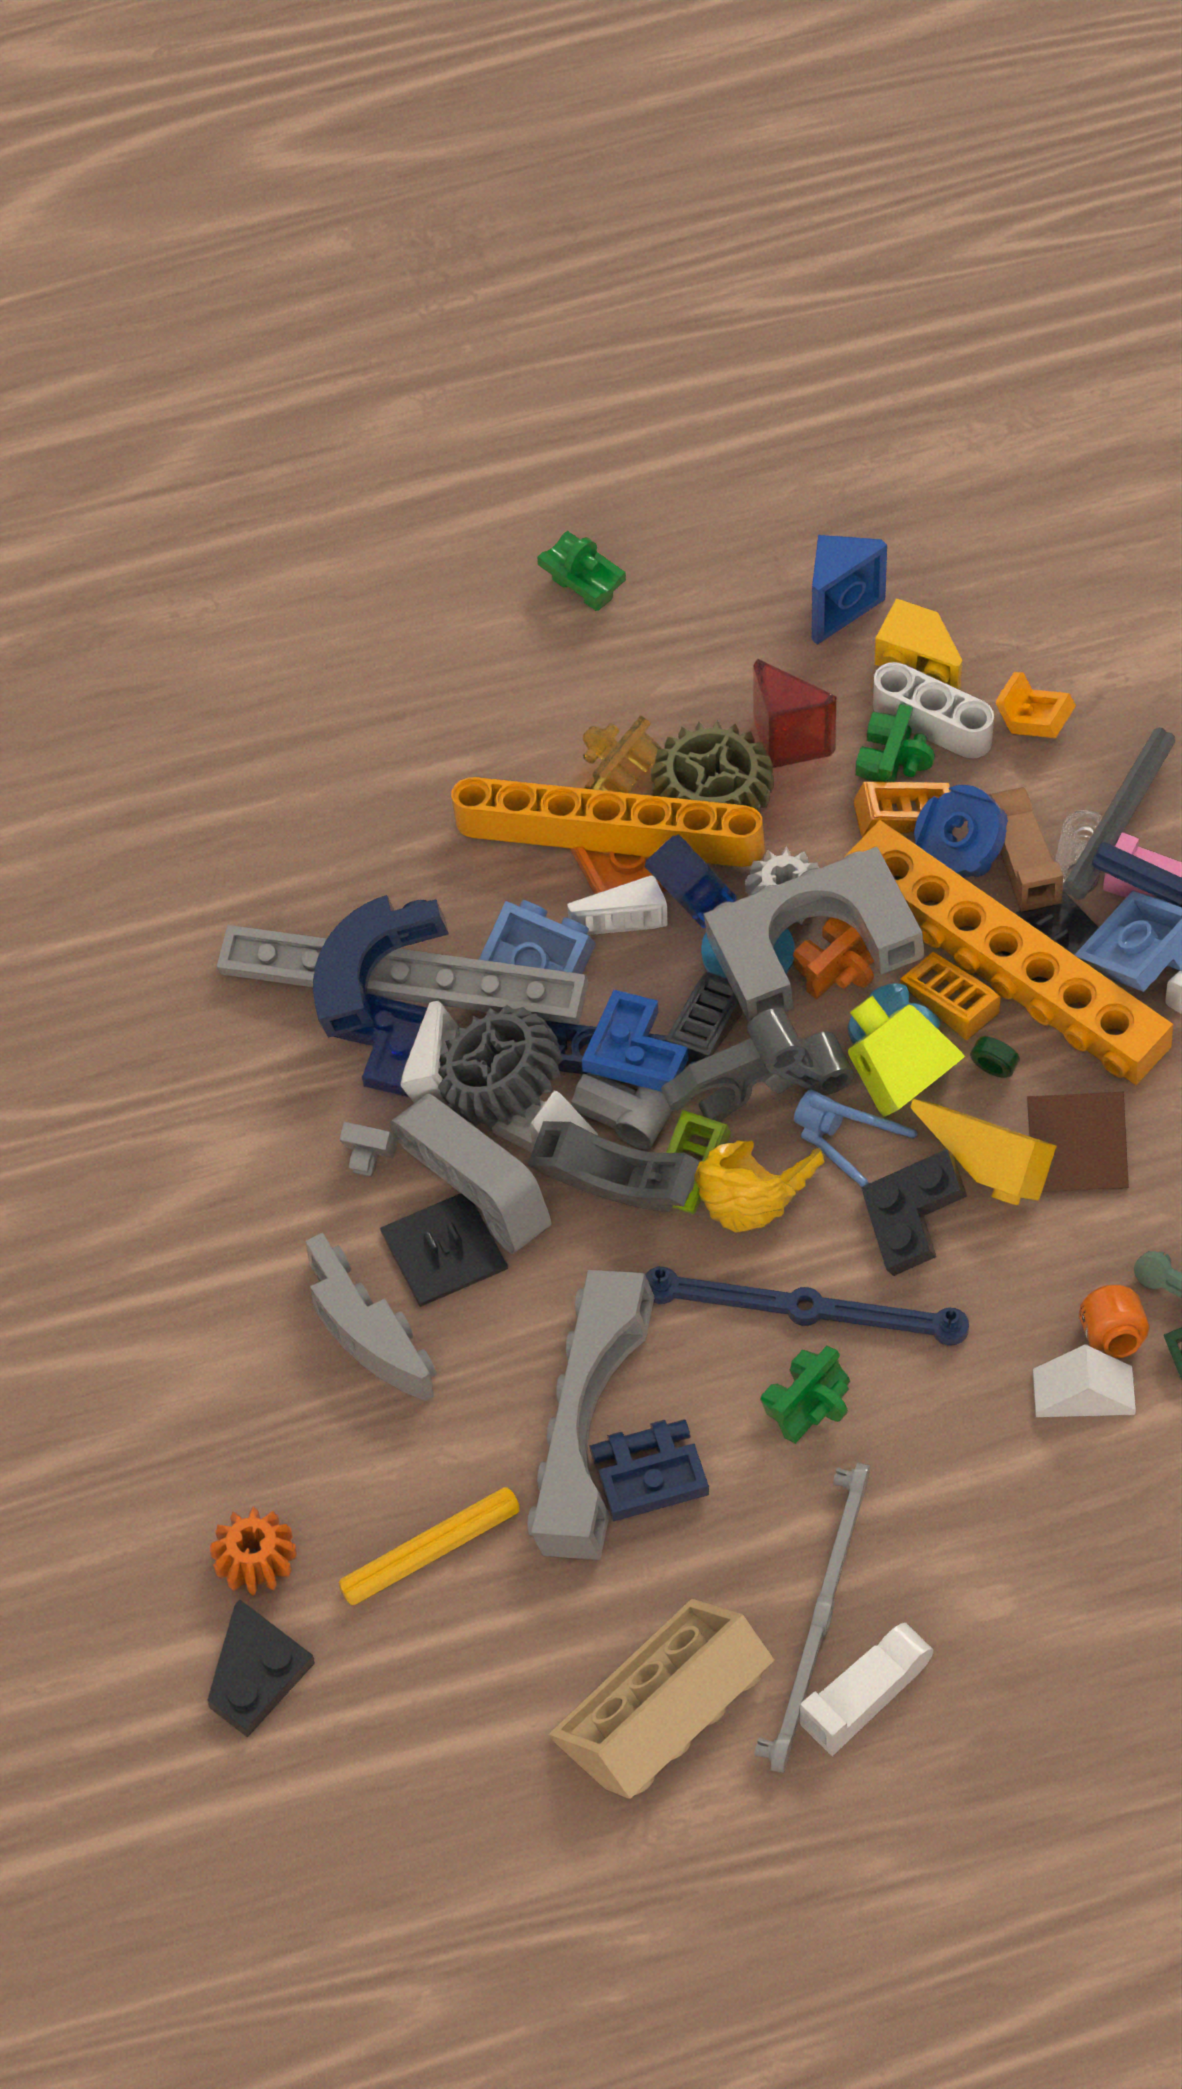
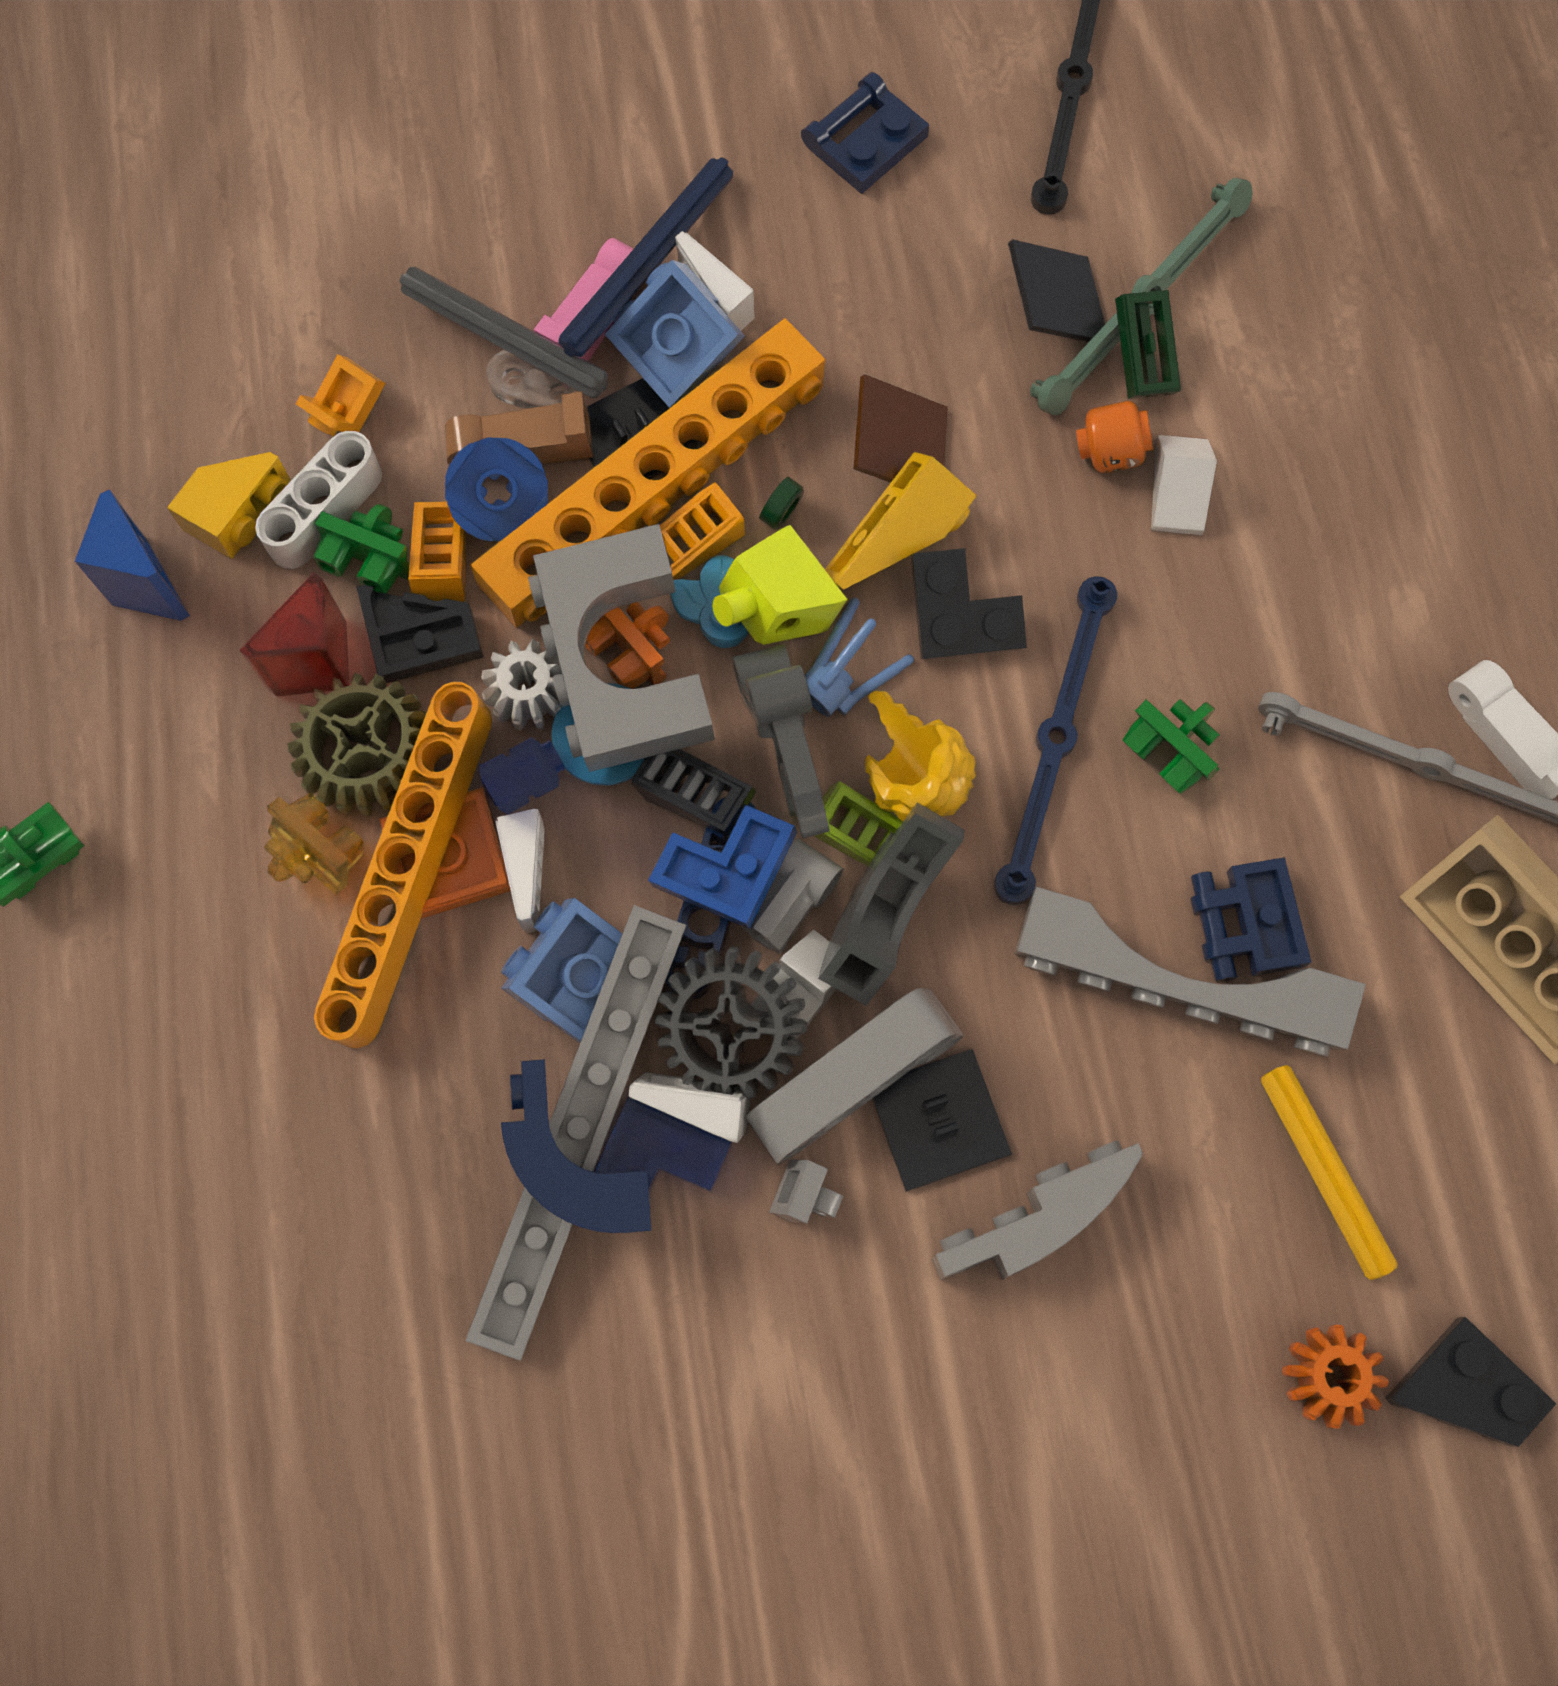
camera: 85 degrees left, 15 degrees up
(821, 801) = (416, 633): none -> black wing

